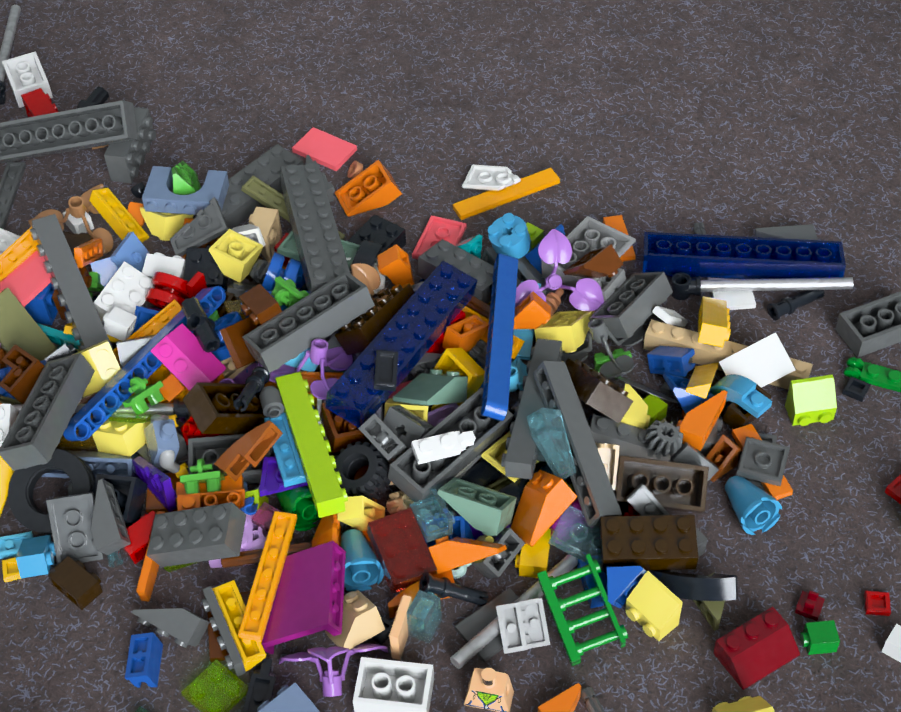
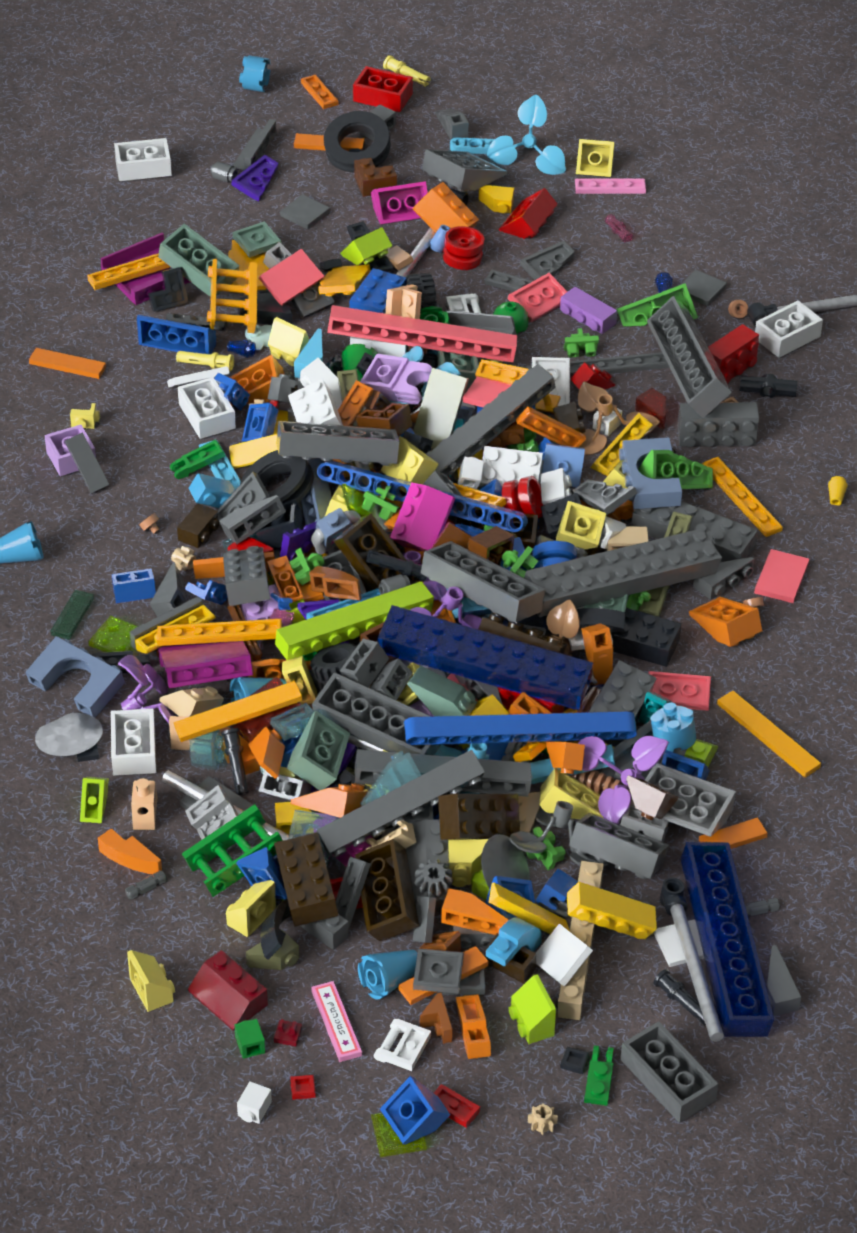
camera: 75 degrees right, 5 degrees down
(18, 220) = (593, 376): none -> red slope
(48, 631) = (150, 523): none -> nougat tile
(78, 183) = (654, 404): none -> clear red slope
(122, 603) = (183, 558): none -> tan gear
(191, 586) = (212, 592): none -> blue bracket
(196, 284) = (529, 508): red tile -> none
(200, 324) = (461, 511): black piece -> none
(220, 153) = (743, 498): none -> light orange tile
(238, 94) = (837, 489): none -> yellow cone
(385, 370) = (428, 639): black tile -> none
(411, 566) = (237, 711): none -> light orange tile
(441, 446) = (364, 703): white hinge -> none
(489, 178) = (782, 712): white tile -> none
(670, 316) = (617, 880): white tile -> none
(798, 562) = (336, 1021): none -> tile
(803, 476) = (437, 1016): none -> dark orange slope
(818, 452) = (473, 1026): none -> orange slope
(836, 506) = (409, 1047): none -> white plate

